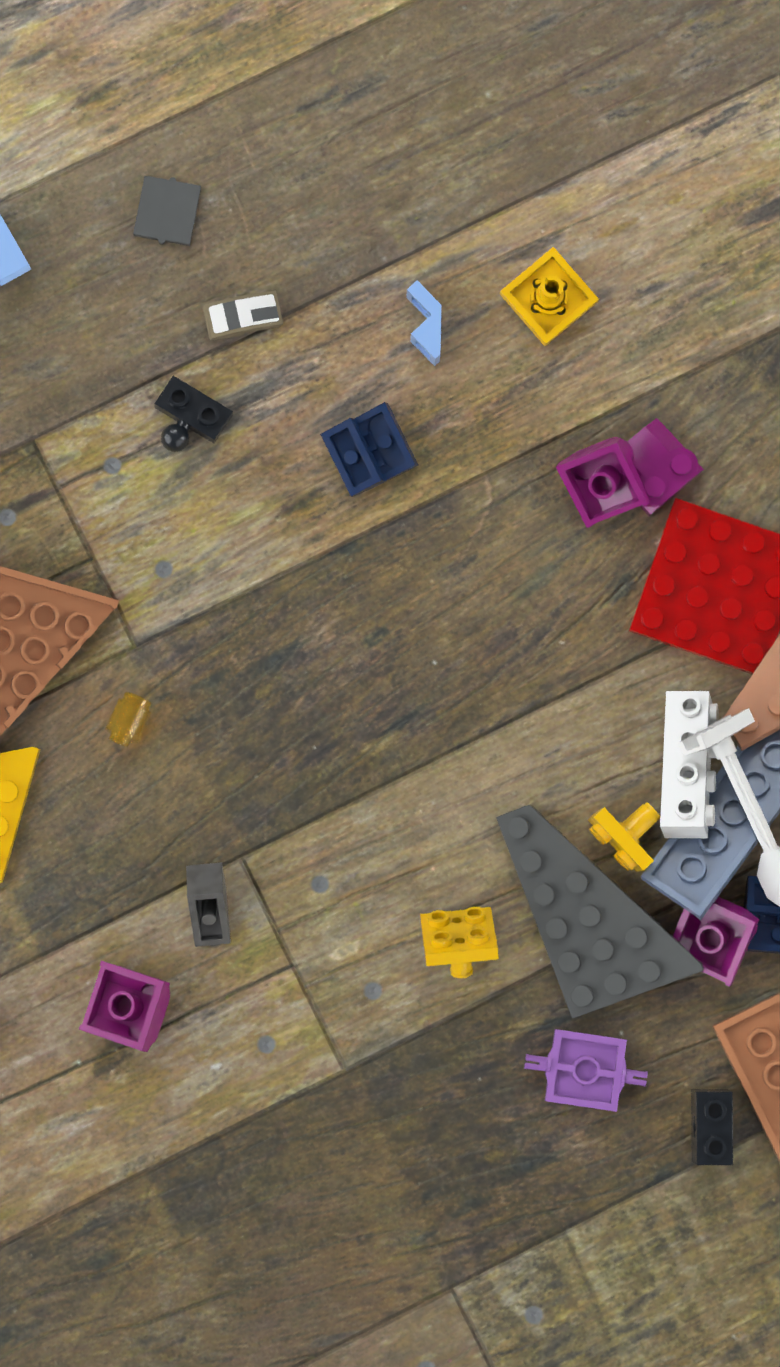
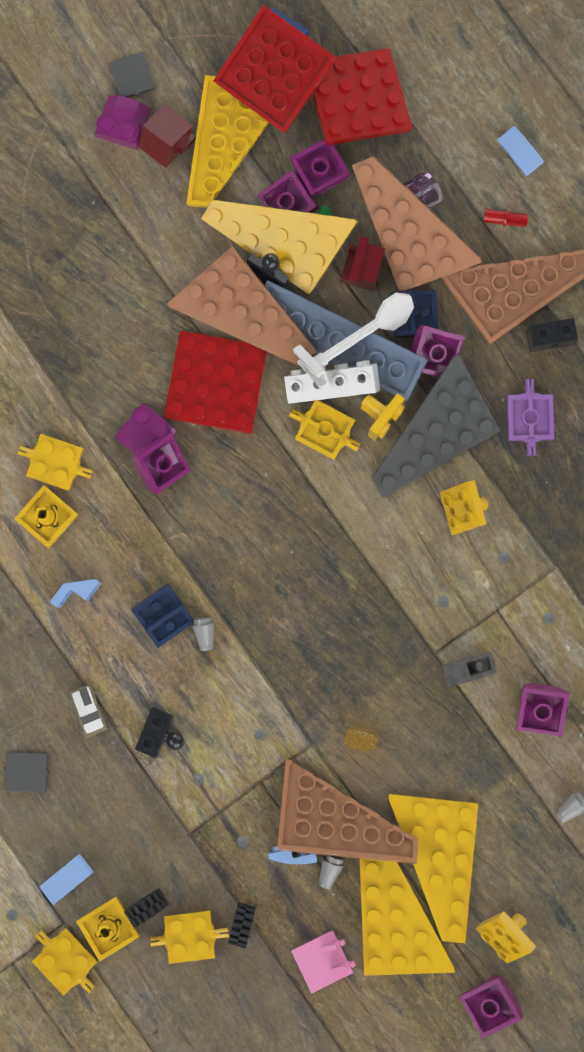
camera: 90 degrees left, 0 degrees up
(332, 507) = (204, 632): none -> light grey cone
(616, 743) = (325, 429): none -> yellow plate
(631, 322) = (55, 462): none -> yellow plate

